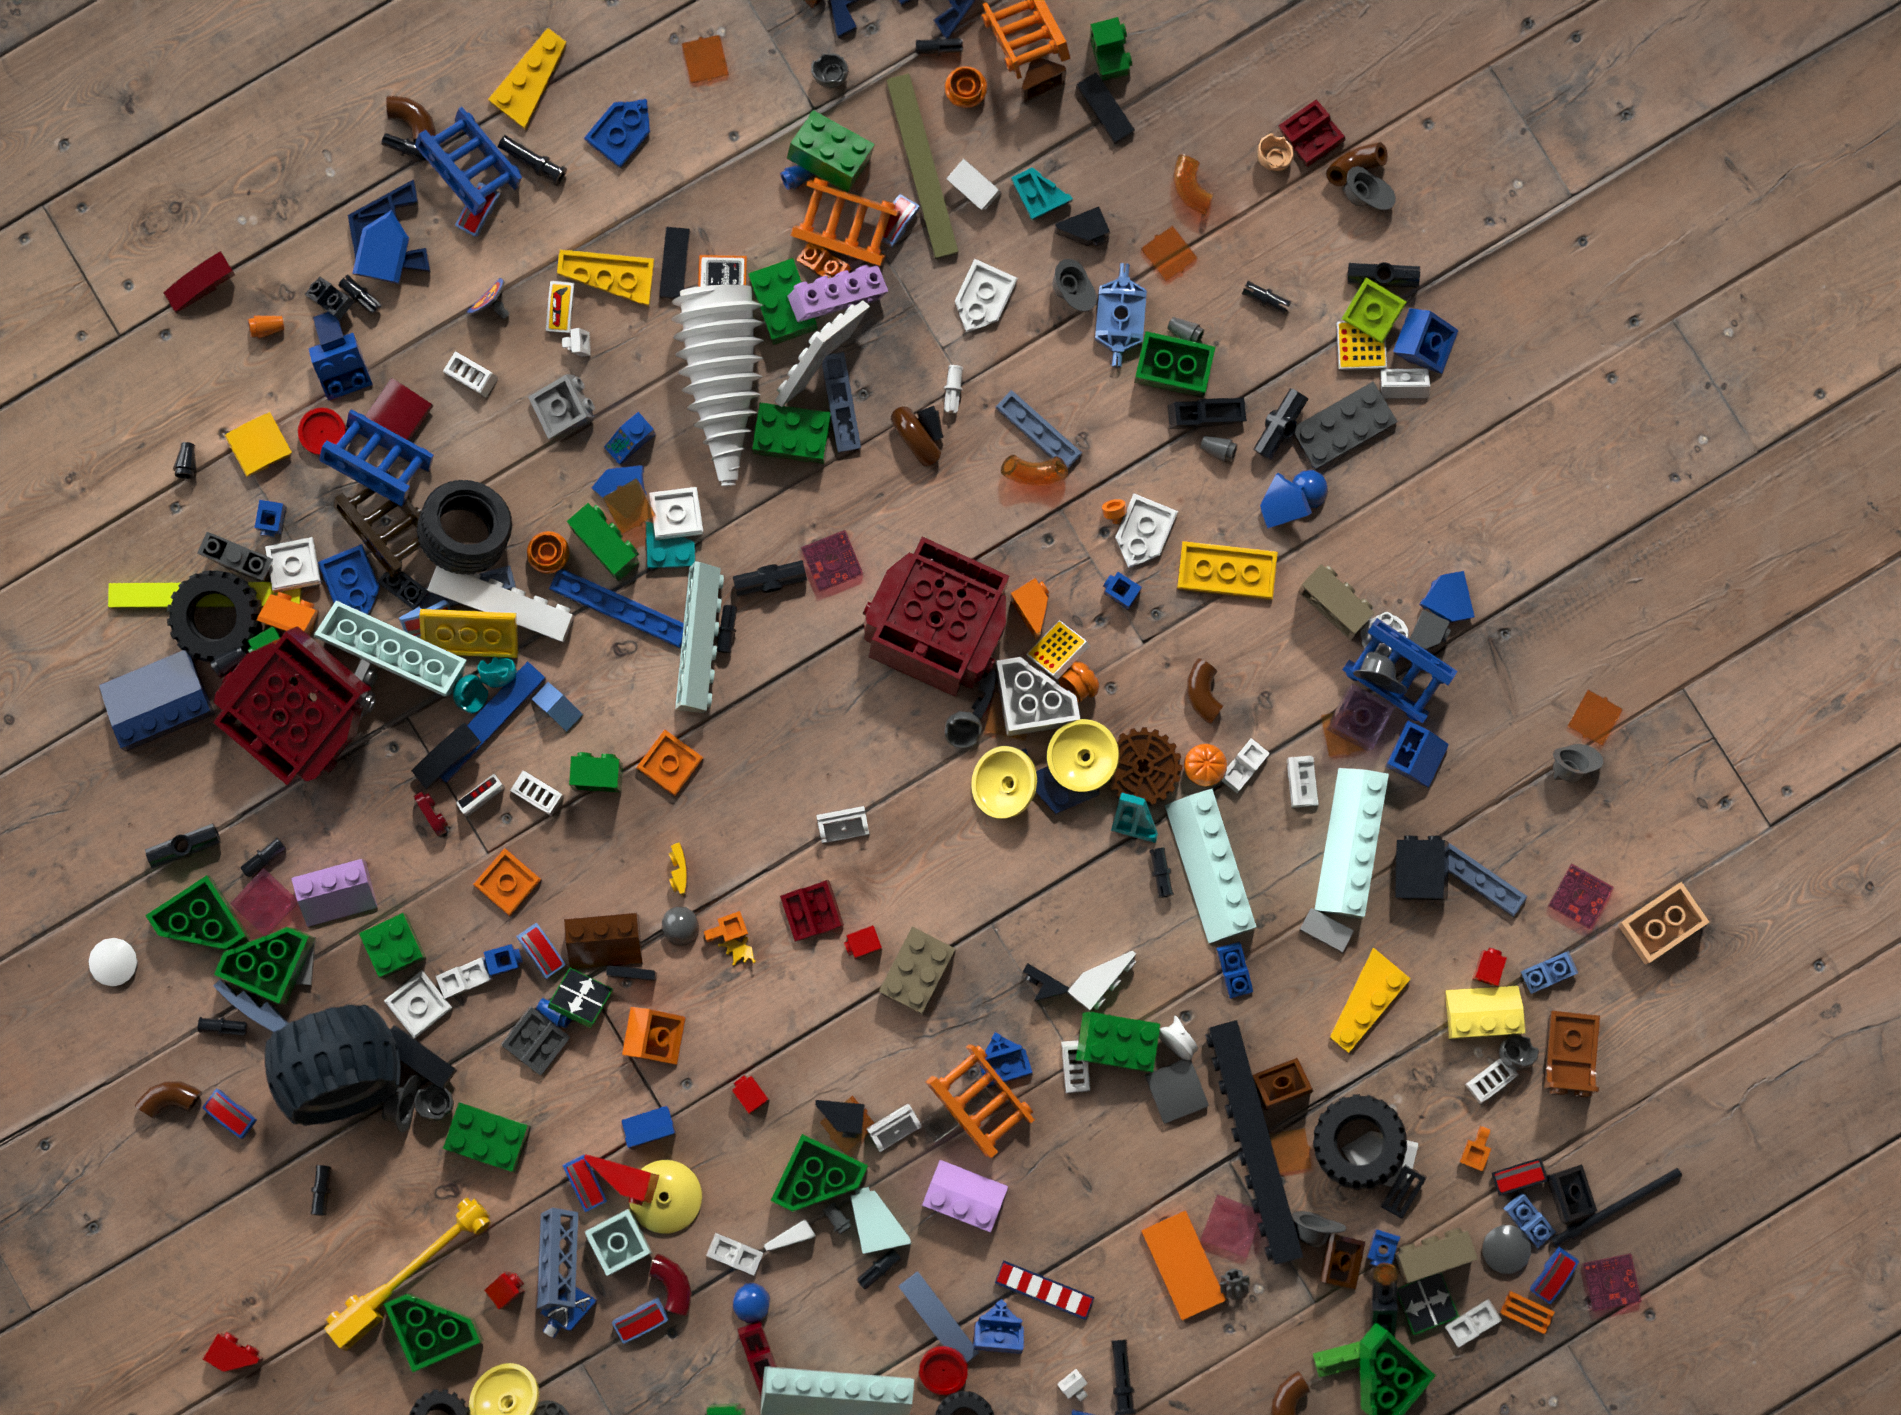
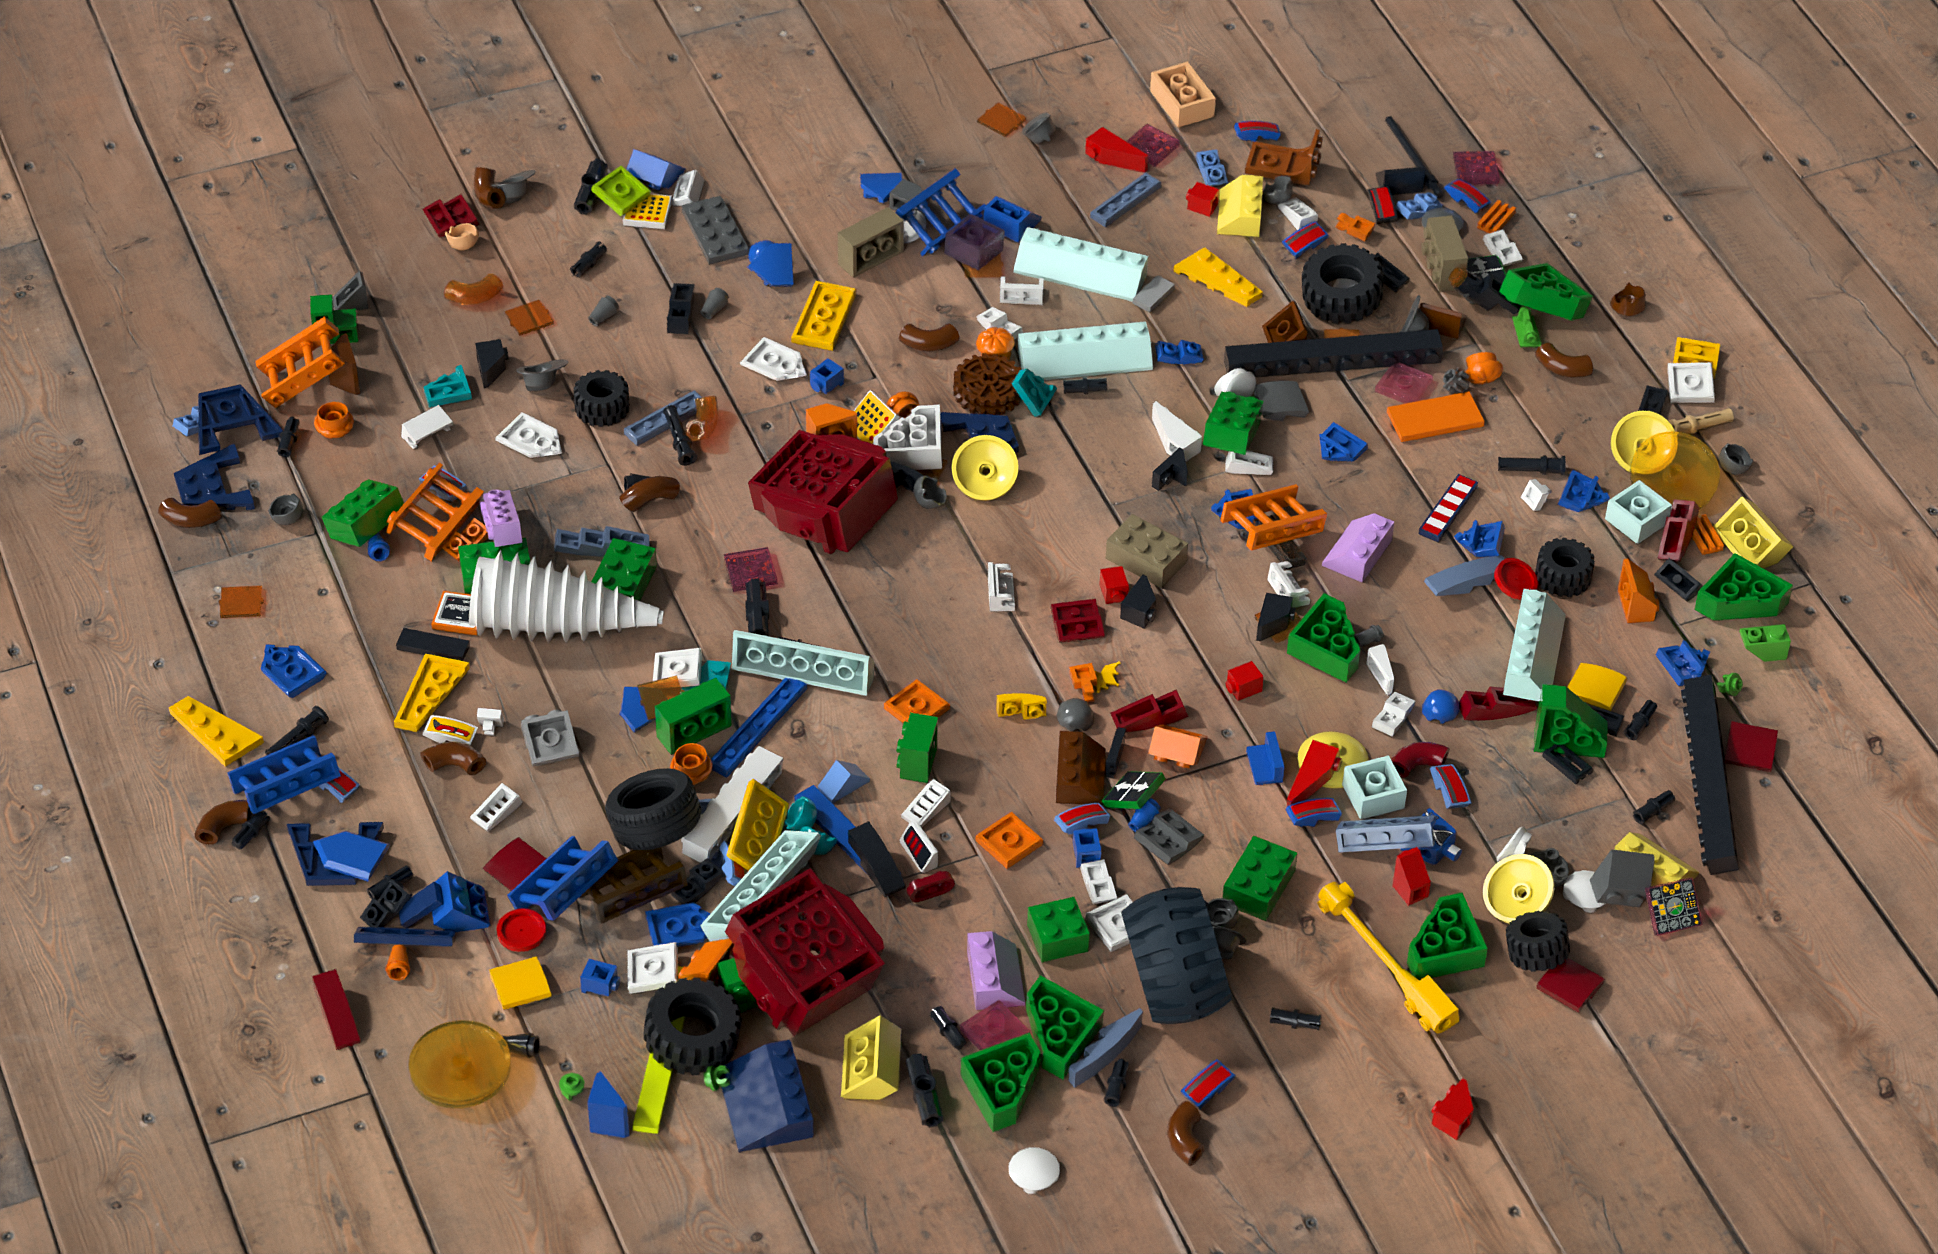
camera: 85 degrees left, 35 degrees down
(111, 555) = (607, 1110): none -> blue slope
(142, 518) = (571, 1085): none -> bright green plate
(147, 410) = (459, 1064): none -> clear yellow dish
(170, 647) = (713, 1075): none -> bright green plate
(210, 791) = (871, 1060): none -> light yellow slope
(227, 662) = (747, 1006): black cone -> none
(235, 556) = (630, 1011): dark grey slope -> none
(295, 324) = (404, 936): none -> dark blue tile
(489, 298) = (426, 775): shield -> none
(527, 317) = (453, 754): none -> reddish brown cylinder
(559, 1392) = (1516, 844): none -> white piece
(629, 438) = (594, 692): blue slope -> none
(692, 1001) = (1150, 712): none -> dark red slope
(821, 345) = (549, 516): white plate -> none
(841, 973) = (1139, 604): none -> black slope
(876, 1223) = (1376, 606): light aqua slope -> none
(879, 1269) = (1418, 612): black axle -> none
(922, 166) = (395, 463): olive tile -> none
(953, 388) = (611, 466): white axle -> none
(995, 455) = (681, 442): none -> black pin
(1044, 337) = (601, 398): none -> black tyre
(1070, 745) = (972, 398): light yellow dish -> none
(1105, 107) = (383, 339): black tile -> none
(1114, 510) = (753, 374): orange tile -> none
(1116, 333) = (591, 354): medium blue plate -> none
(1120, 1162) = (1340, 444): none -> blue slope
(1160, 58) = (352, 294): none -> dark grey slope
(1174, 364) = (632, 316): green brick -> none
(1259, 1313) = (1483, 368): none -> orange piece
(1280, 424) = (704, 260): black piece -> none
(1381, 672) = (942, 215): dark grey piece -> none
(1382, 1238) = (1433, 290): blue brick -> none
(1422, 868) = (1112, 223): black brick -> none
(1443, 1093) = (1305, 238): none -> slope
(1555, 851) = (1115, 151): none -> red slope
(1624, 1018) = (1252, 129): none -> blue slope

